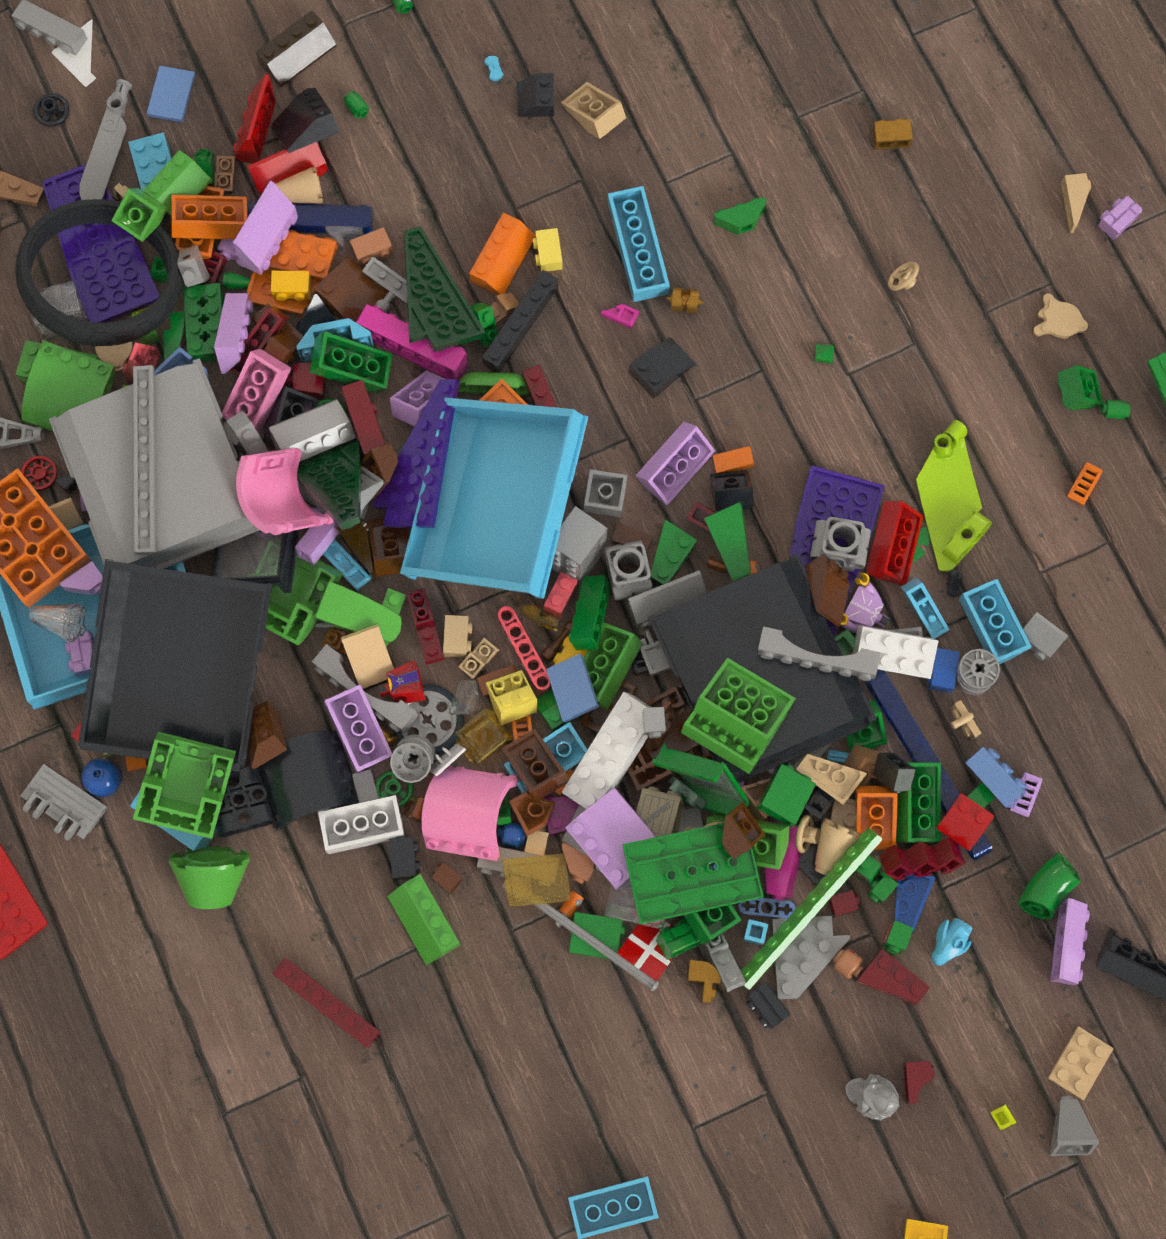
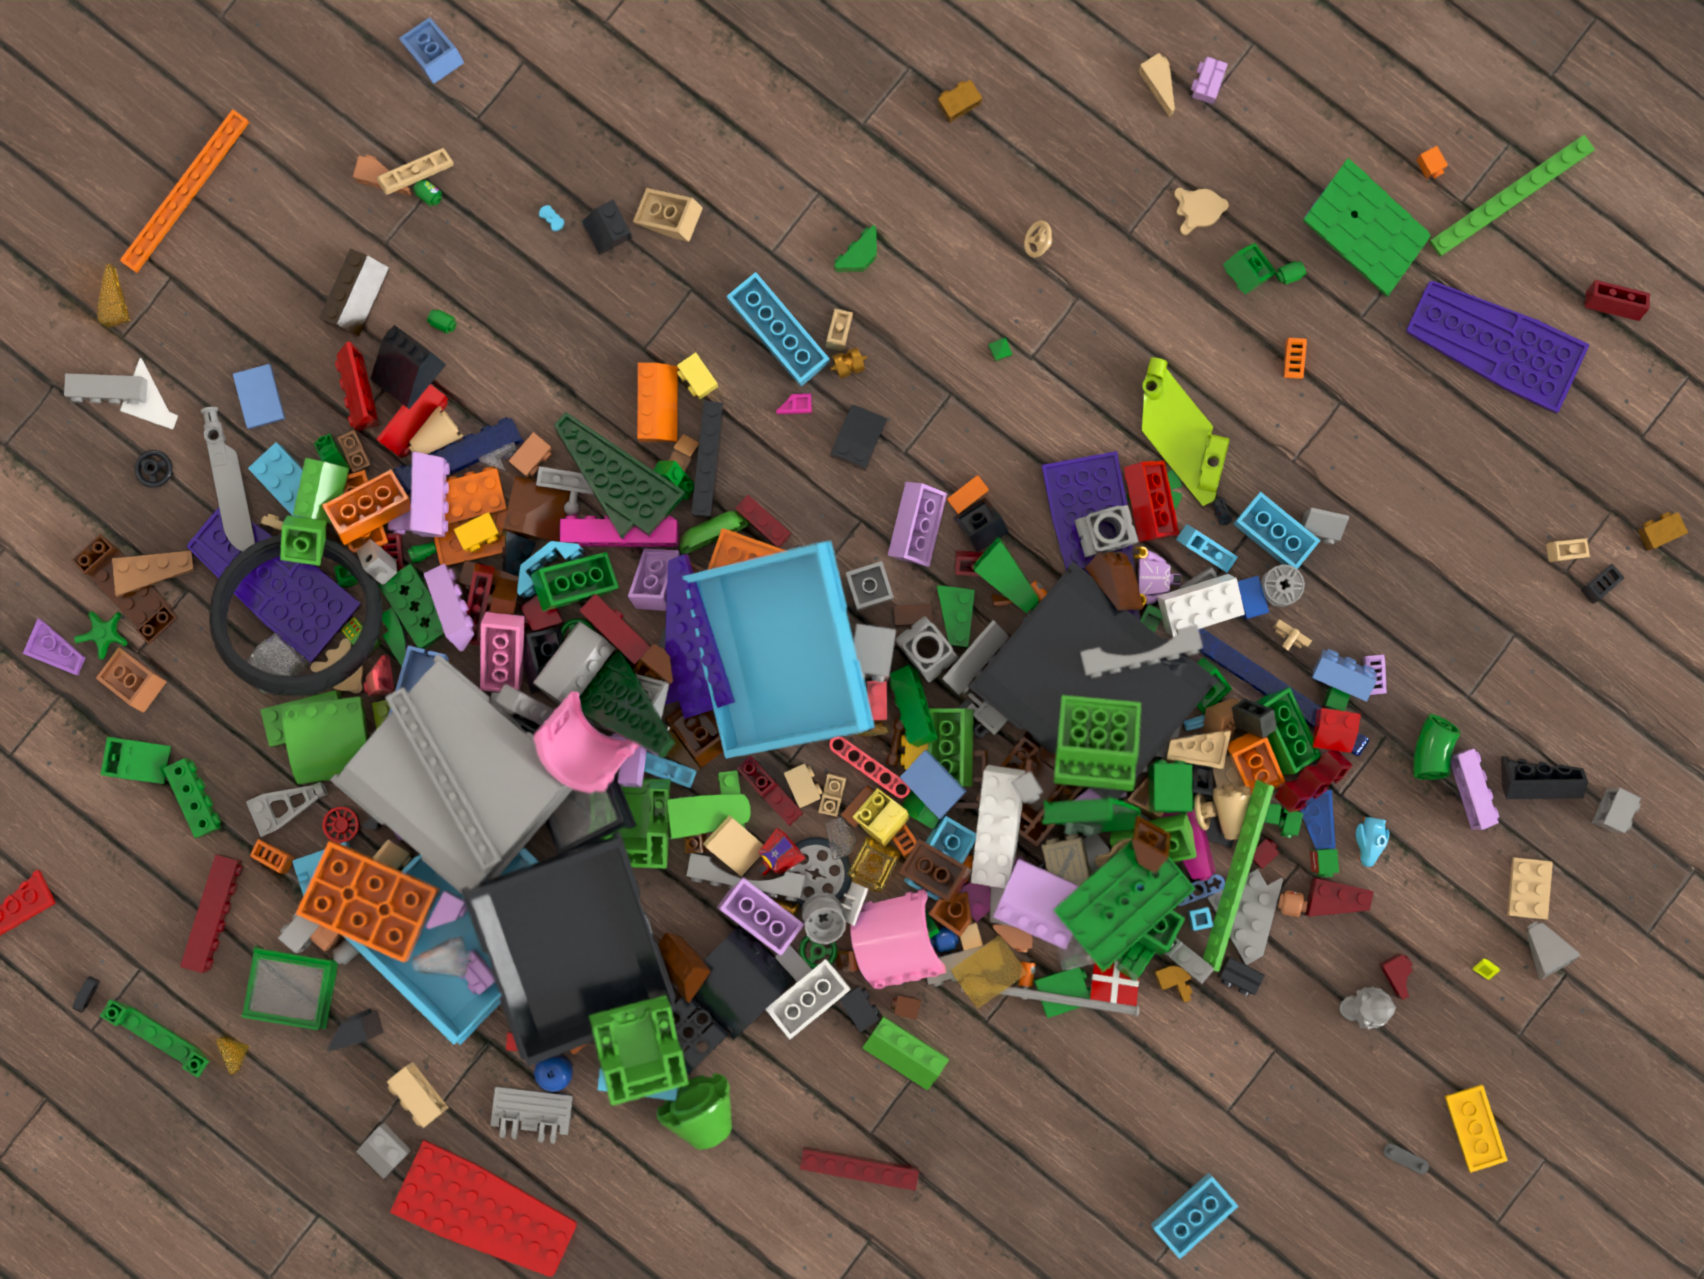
camera: 25 degrees left, 10 degrees up
(690, 271) = (839, 330): none -> tan slope

